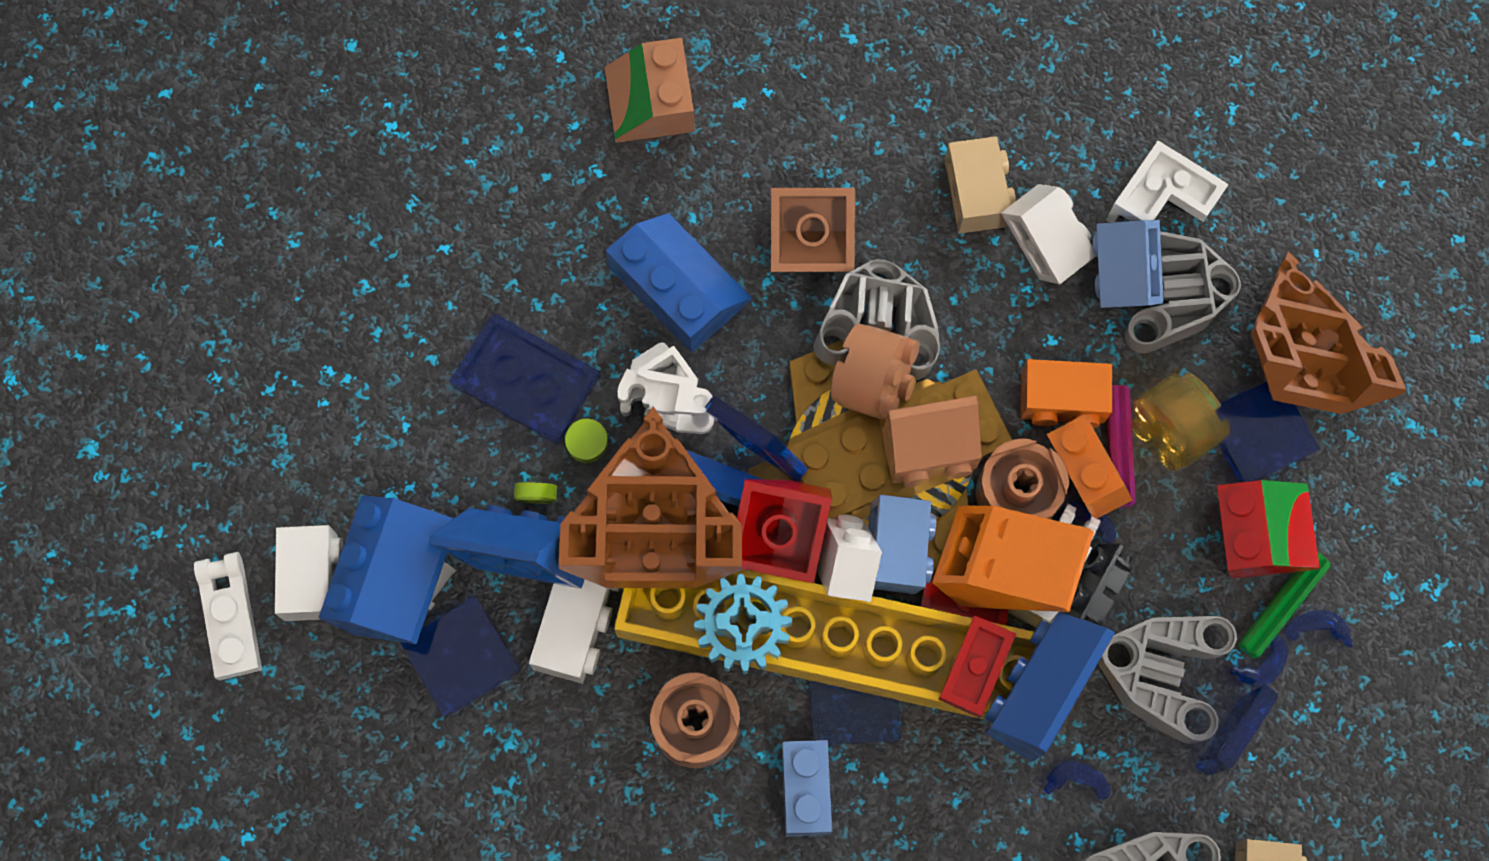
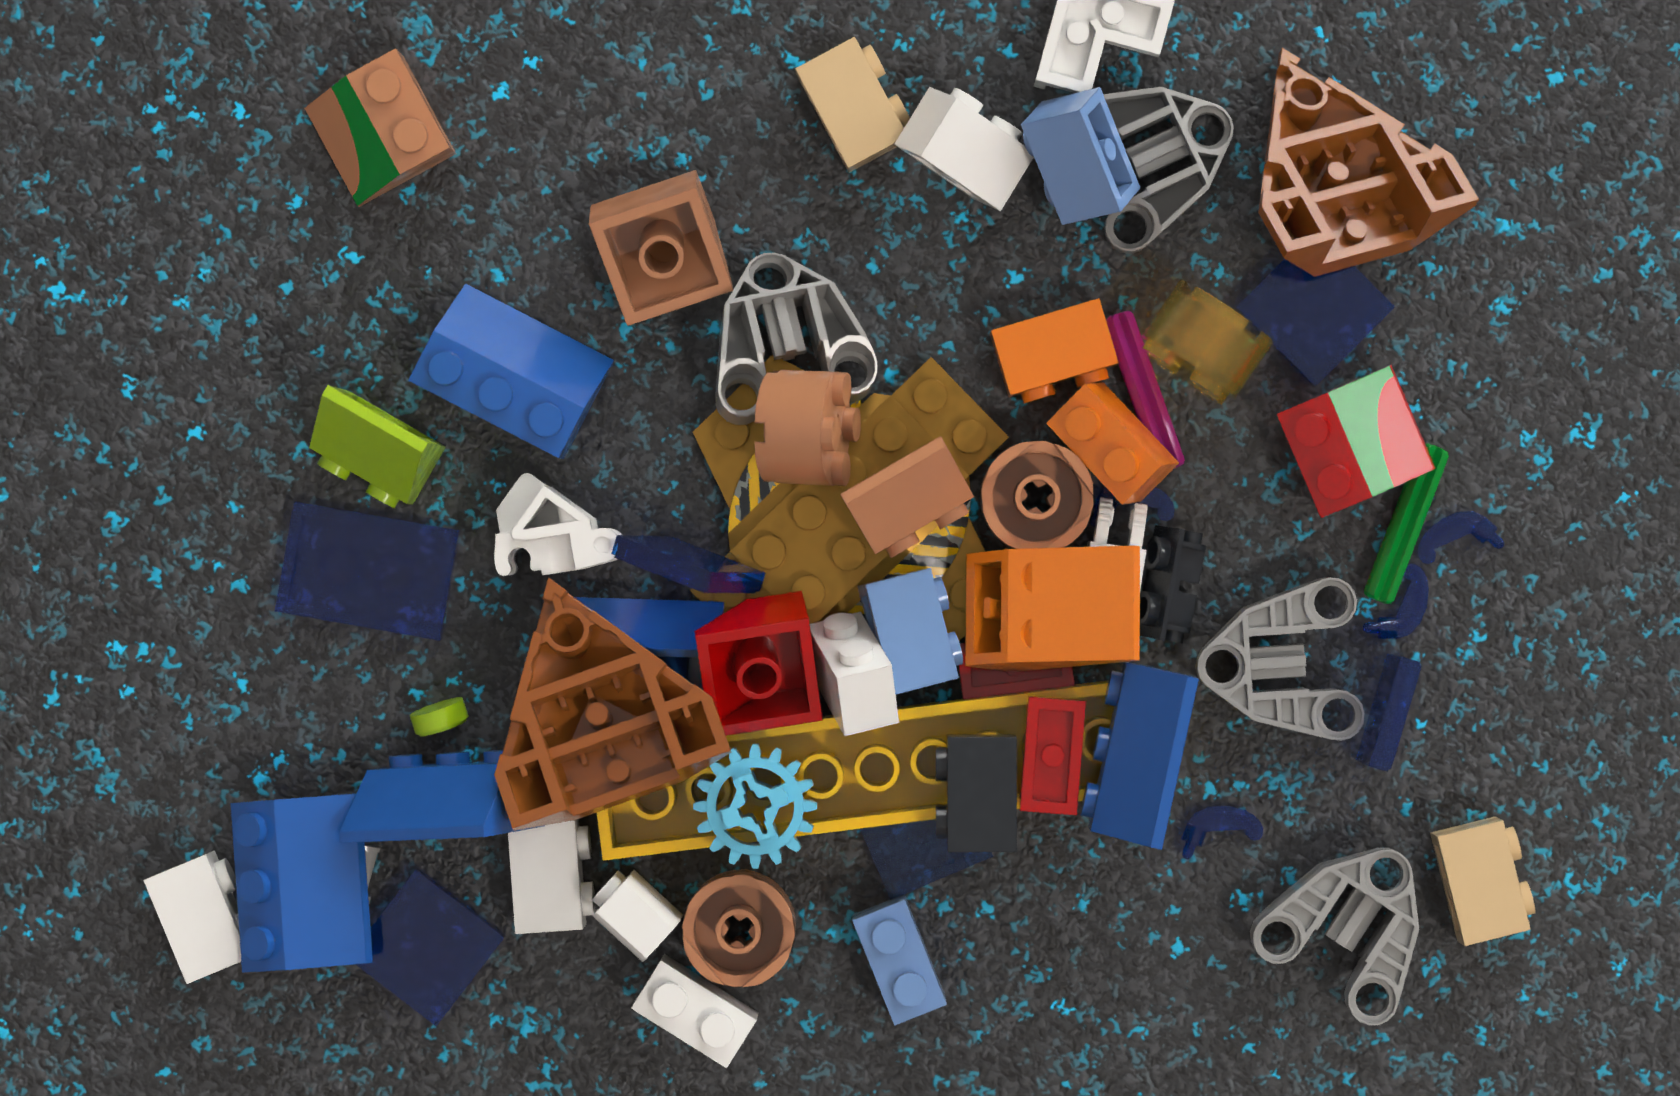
camera: 20 degrees left, 15 degrees up
(228, 617) = (126, 999): white plate -> none
(564, 283) = (374, 446): none -> lime slope
(586, 440) = (476, 624): lime tile -> none
(623, 679) = (635, 913): none -> white brick
(639, 771) = (695, 1011): none -> white brick
(914, 673) = (979, 793): none -> black brick

